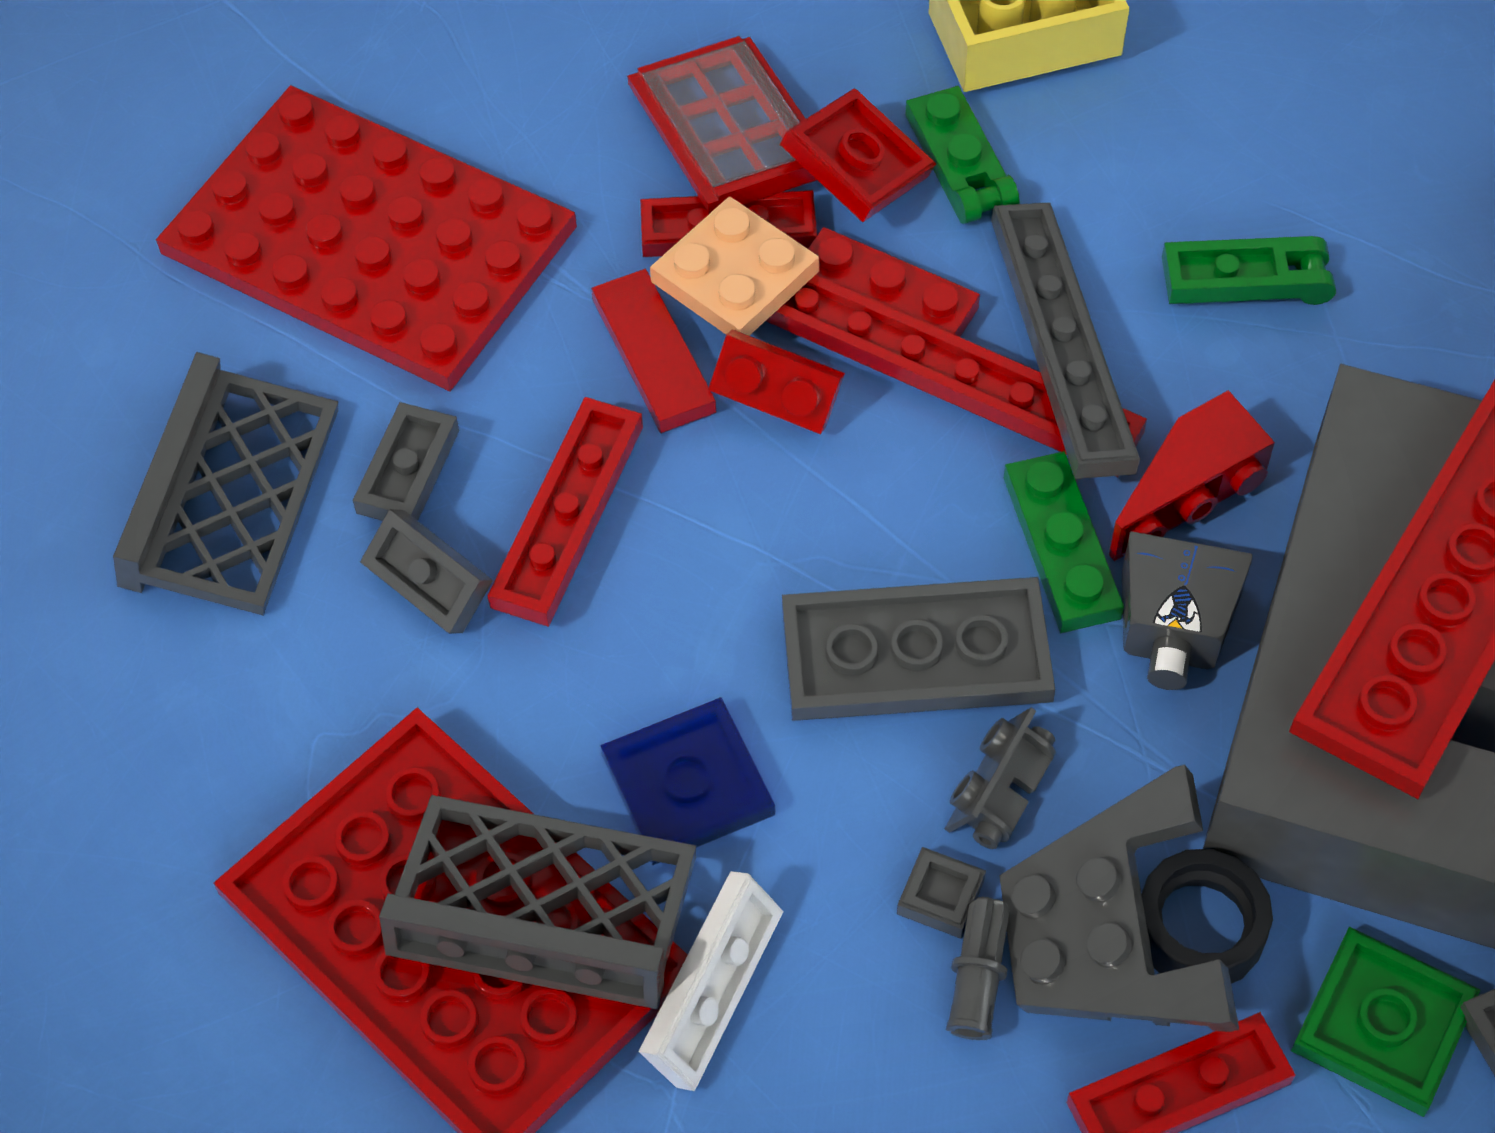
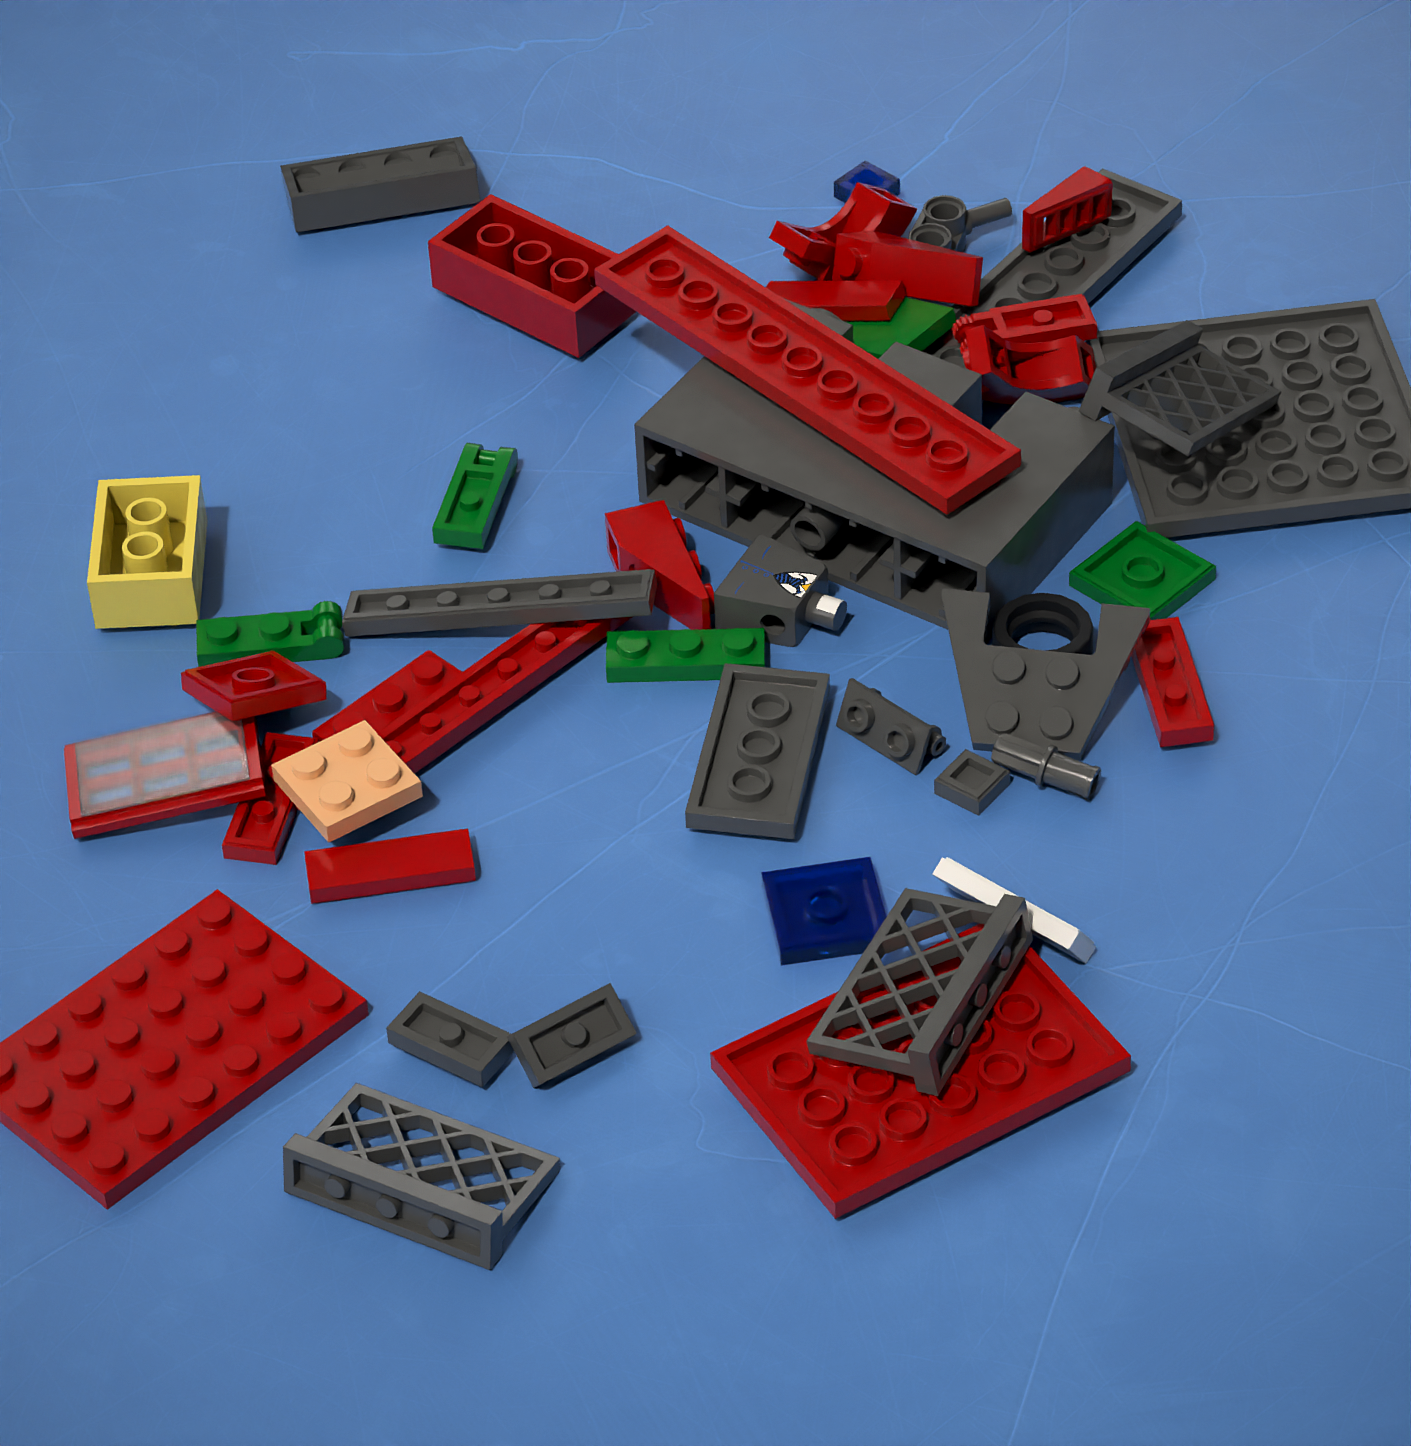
camera: 75 degrees left, 15 degrees down
(565, 512) = (540, 937): red plate -> none
(776, 381) = (471, 780): red plate -> none

